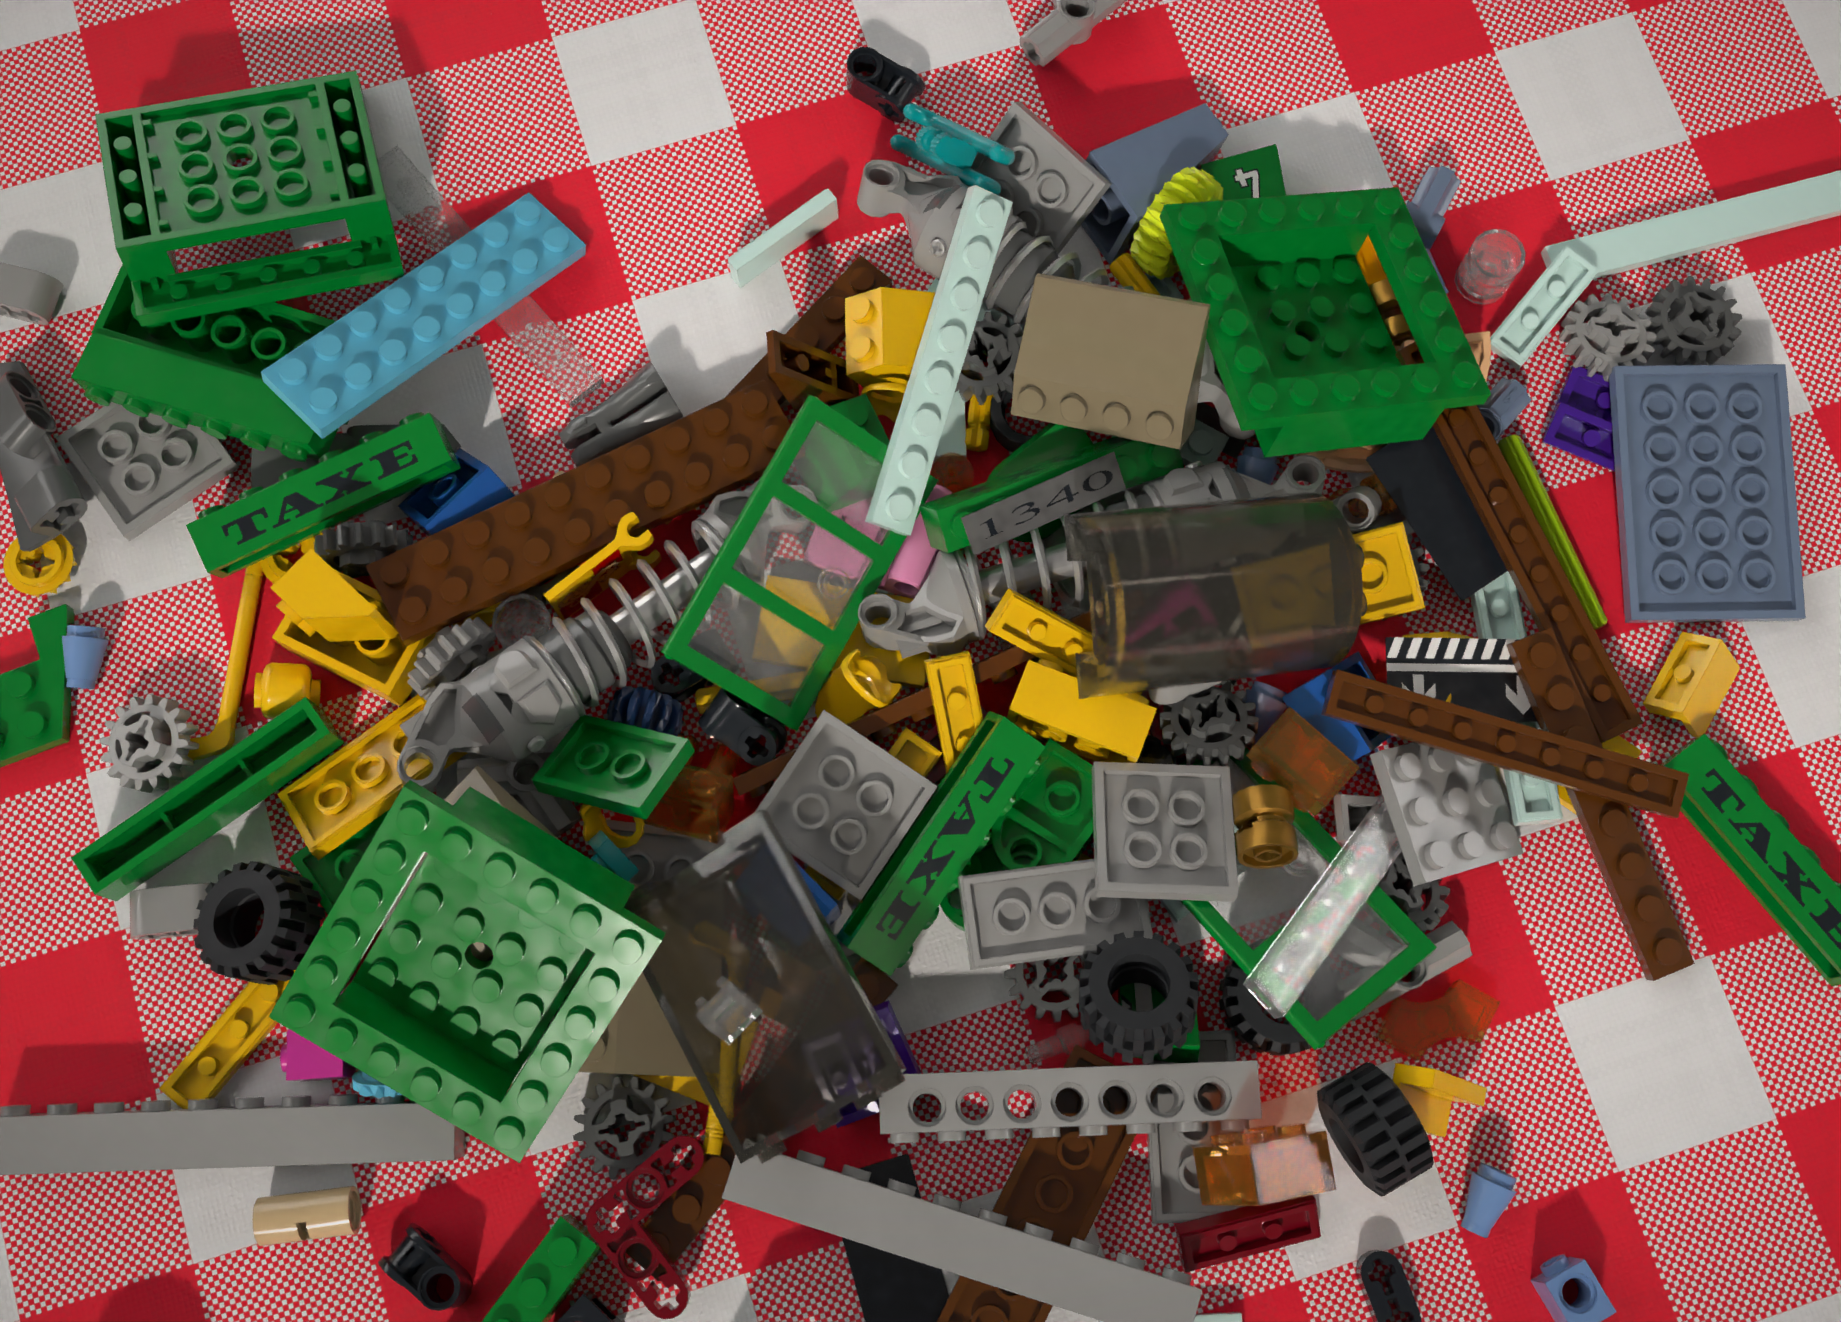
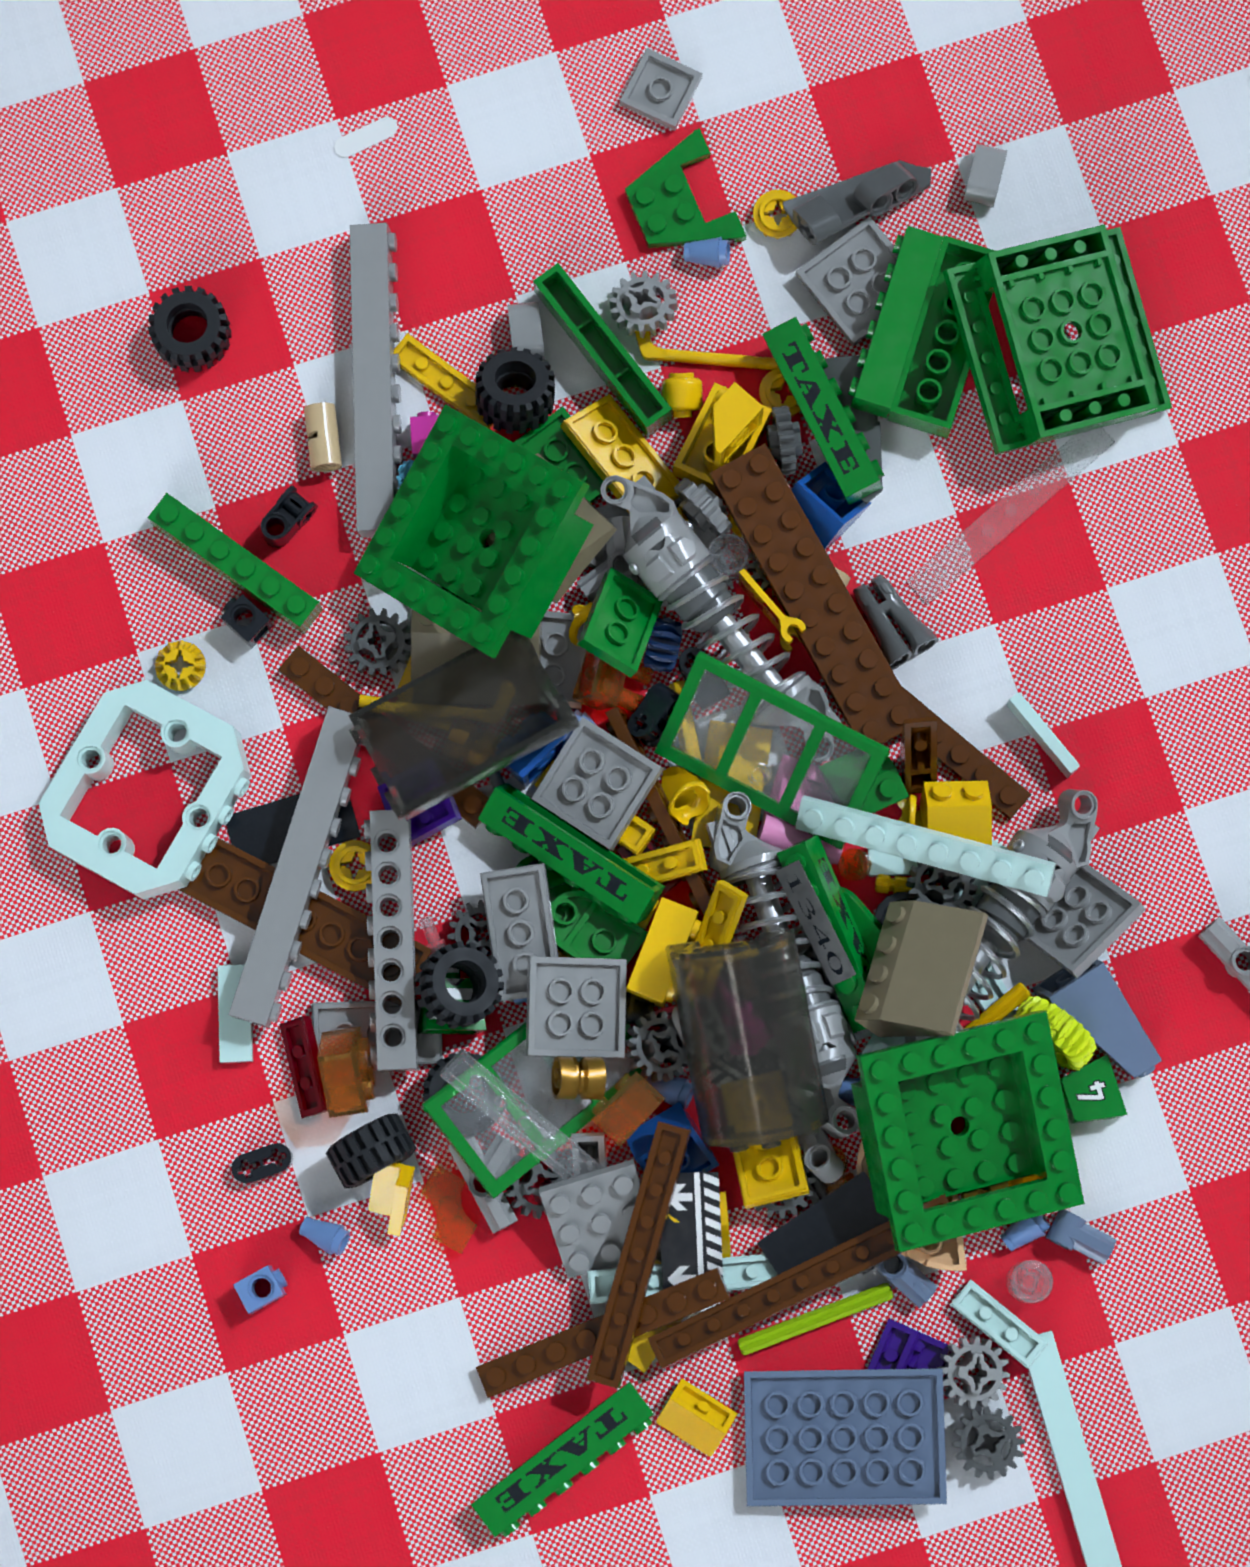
camera: 95 degrees right, 5 degrees up
(423, 315) = (967, 474): medium azure plate -> none
(611, 856) = (559, 624): teal plate -> none
(633, 1231) = (310, 650): dark red beam -> none
(727, 1011) = (448, 704): clear tile -> none
(888, 87) = (1174, 814): black piece -> none
(950, 147) = (1109, 862): teal piece -> none
(967, 1178) = (345, 854): none -> yellow gear

